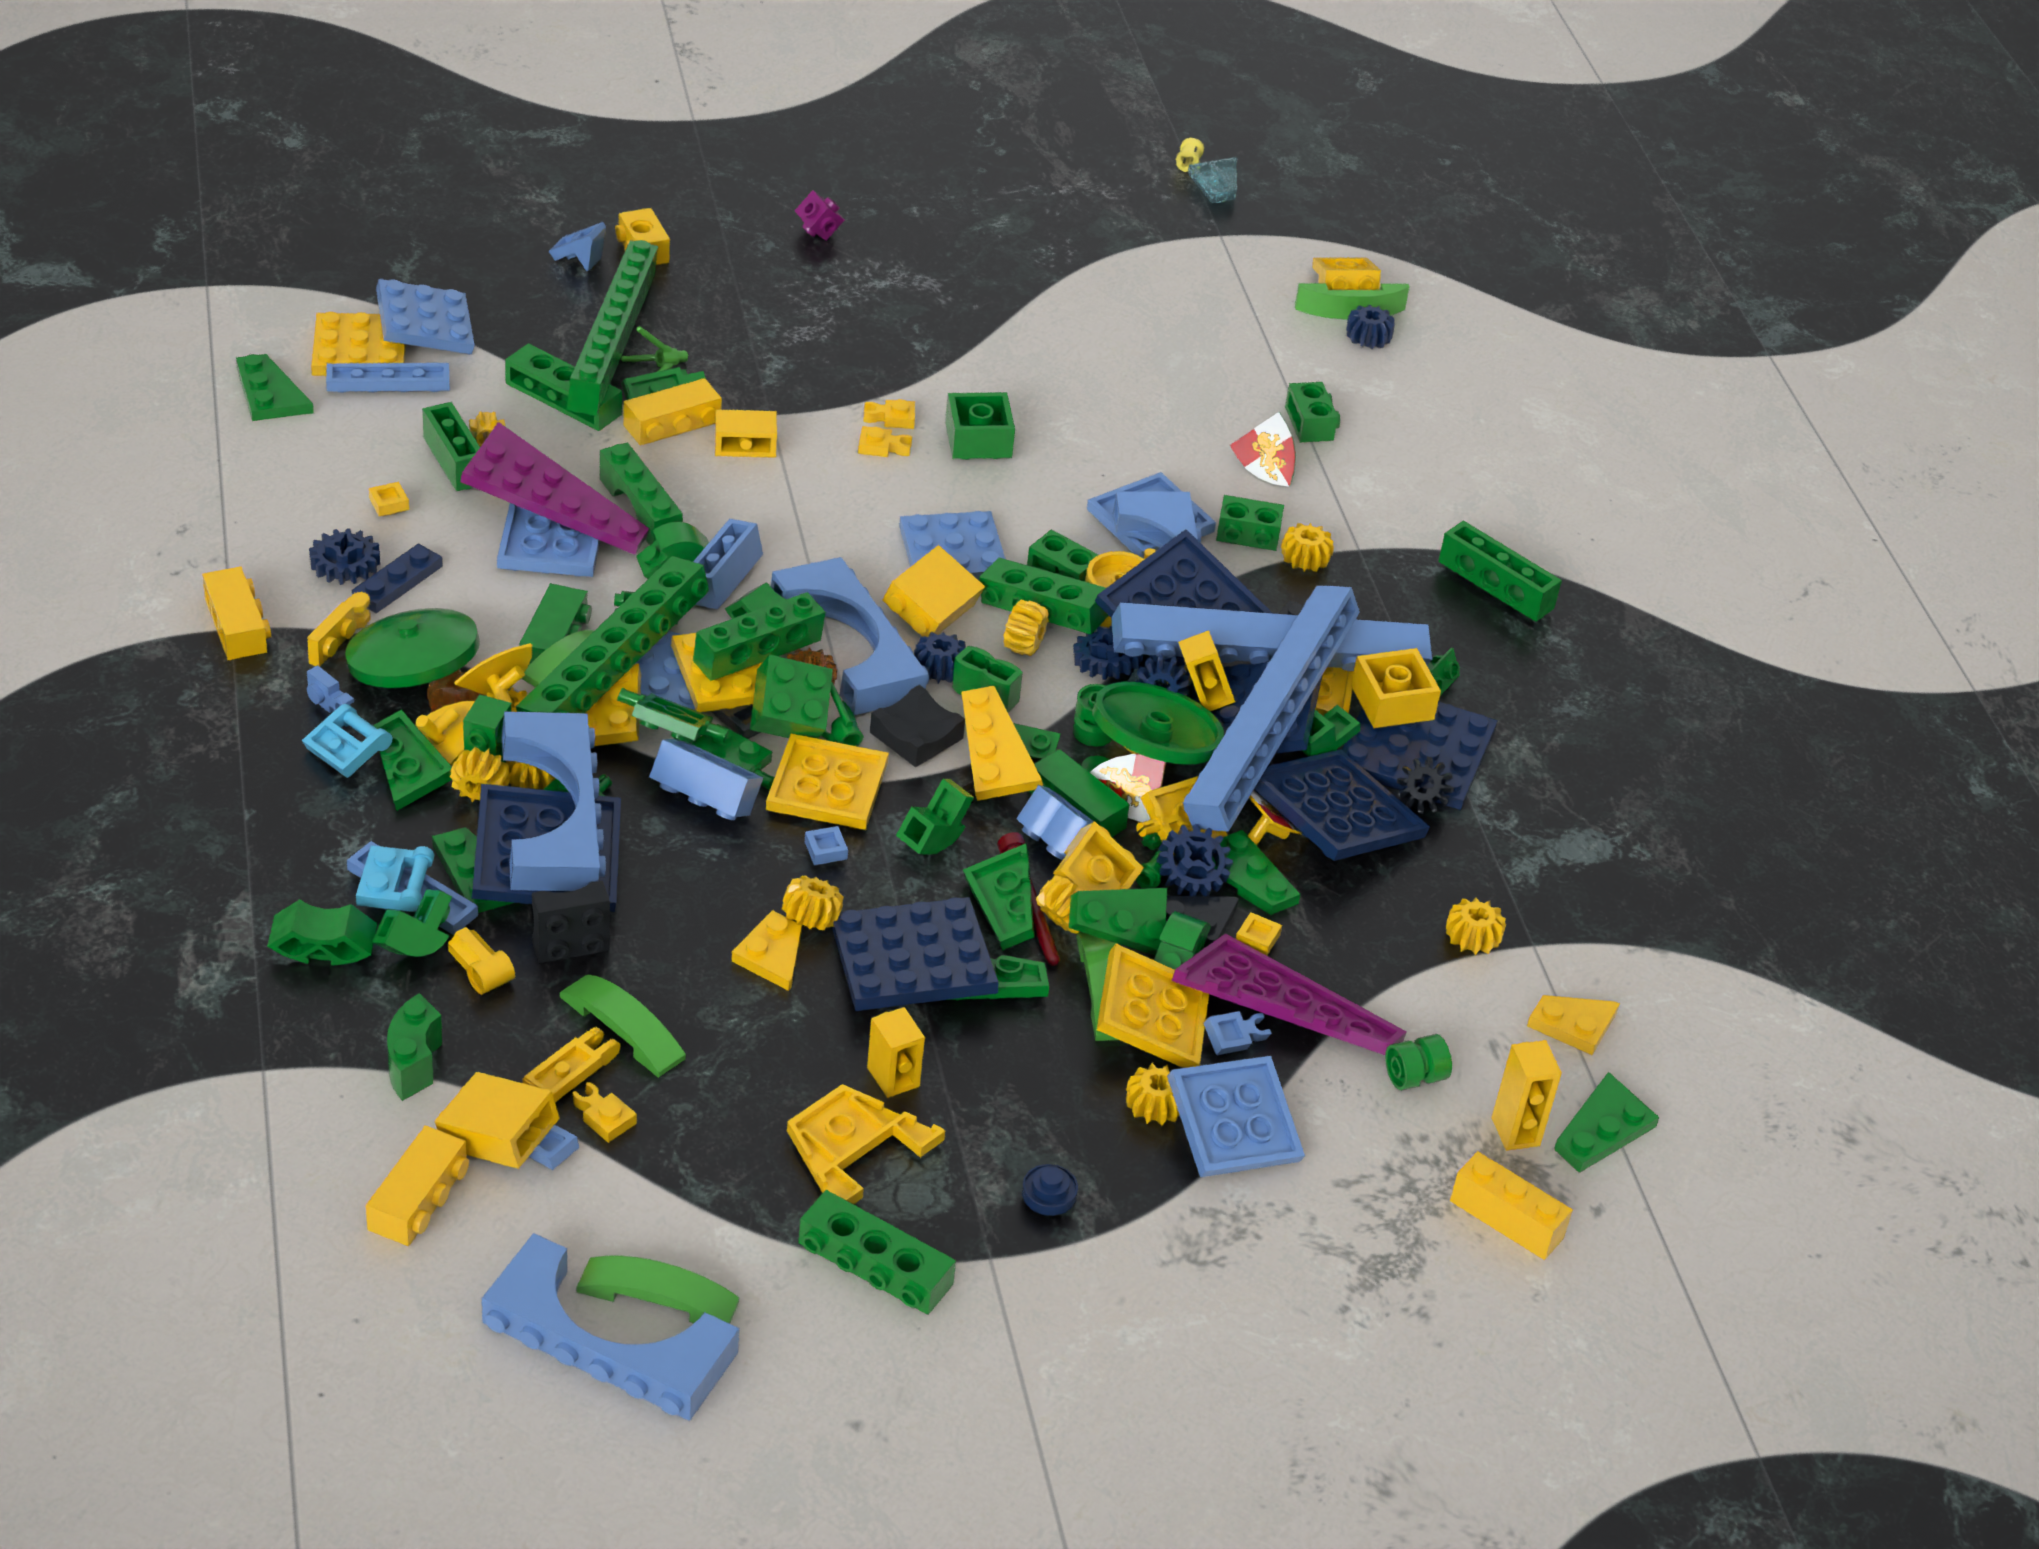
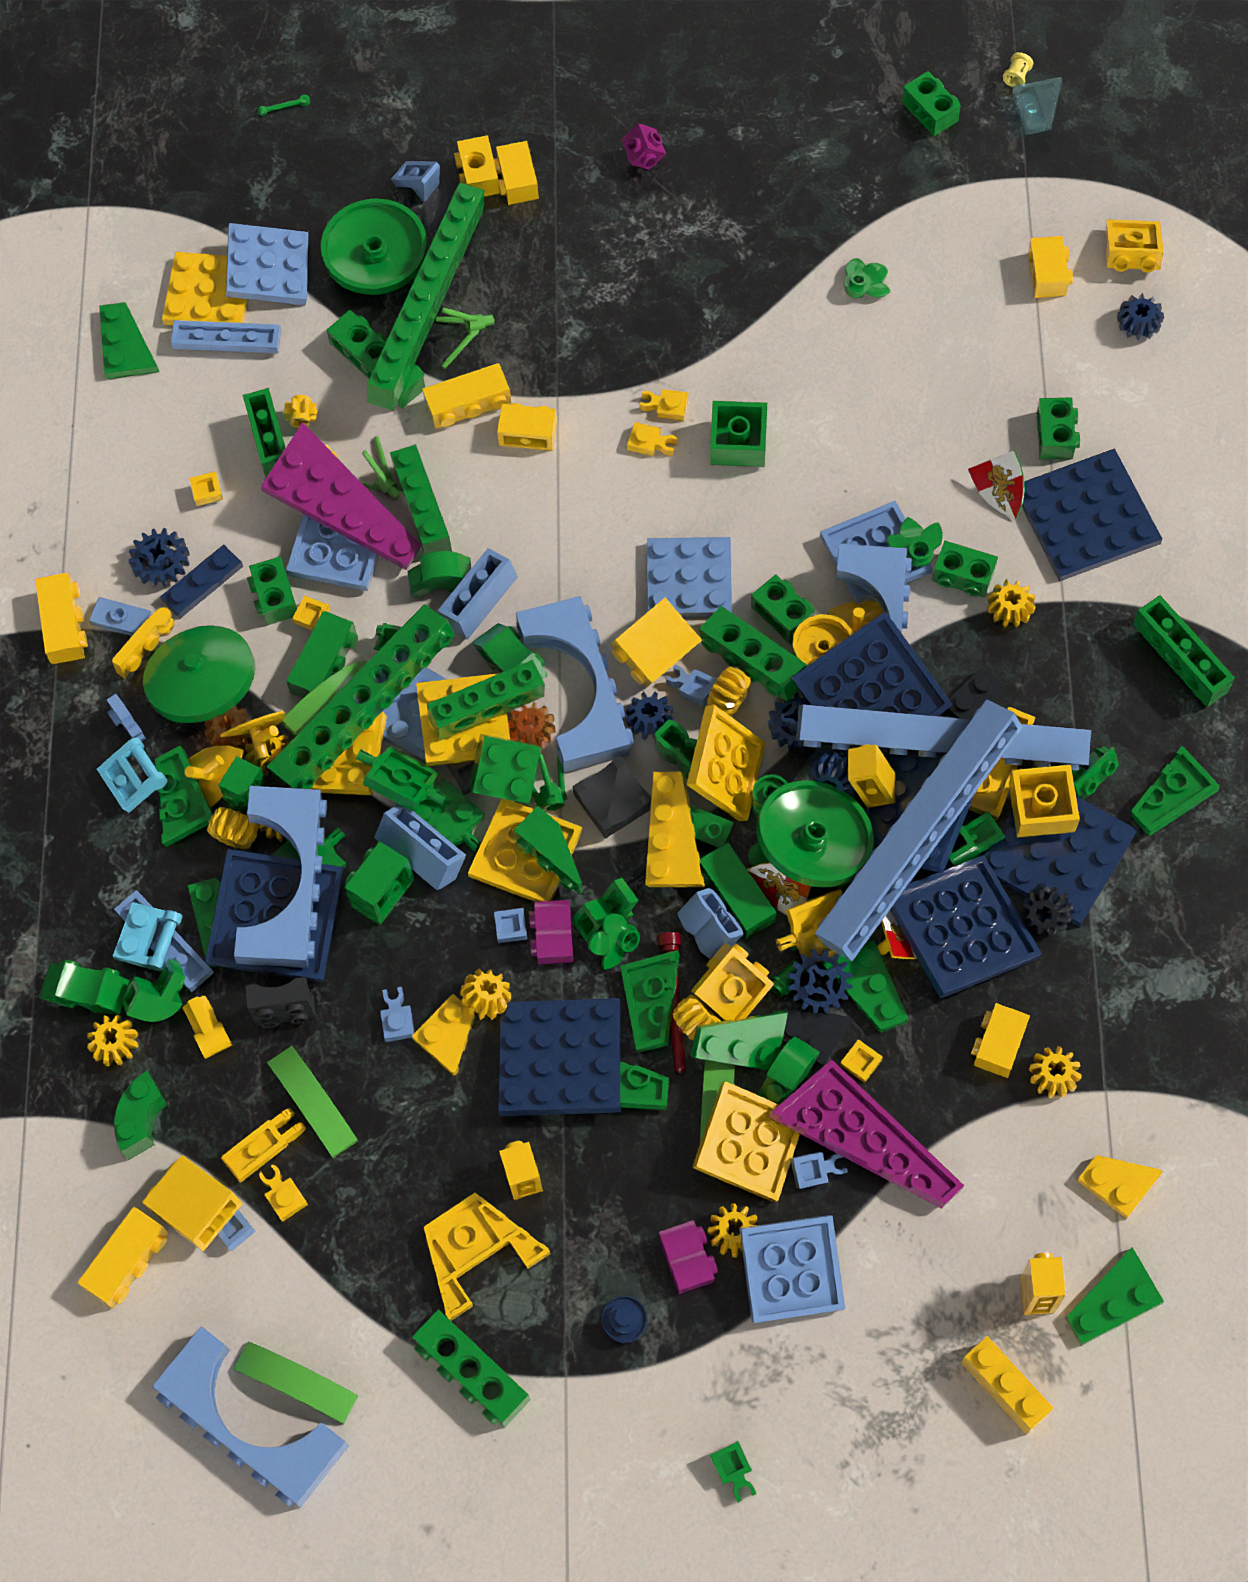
camera: 20 degrees right, 25 degrees up
(300, 611) = (118, 616): none -> medium blue plate
(366, 981) = (106, 1050): none -> yellow gear
(437, 197) = (304, 100): none -> green hinge
(485, 577) = (275, 590): none -> green brick
(529, 594) = (309, 612): none -> yellow plate
(543, 296) = (374, 246): none -> green dish
(592, 479) = (384, 480): none -> bright green plant
(657, 381) = (461, 362): green hinge -> none
(666, 809) = (379, 882): none -> green brick
(689, 241) = (517, 173): none -> yellow brick
(707, 941) = (396, 1020): none -> medium blue plate
(859, 763) = (545, 841): none -> green slope
(877, 846) = (553, 932): none -> magenta brick
(950, 844) = (614, 940): none -> green plate
(983, 632) = (693, 686): none -> medium blue plate
(1040, 678) = (726, 763): none -> yellow plate
(1083, 309) = (865, 279): none -> green plate
(1108, 1123) = (687, 1257): none -> magenta brick
(1109, 179) = (931, 103): none -> green brick
(1204, 498) = (917, 540): none -> green plate
(1216, 1316) = (732, 1466): none -> green plate
(1266, 293) = (1049, 266): none -> yellow brick
(1337, 304) = (1124, 285): bright green slope -> none
(1365, 480) = (1088, 515): none -> dark blue plate
(1407, 904) = (1001, 1039): none -> yellow brick
(1423, 1060) = (966, 1222): green wheel -> none
(1526, 688) = (1175, 792): none -> green wing

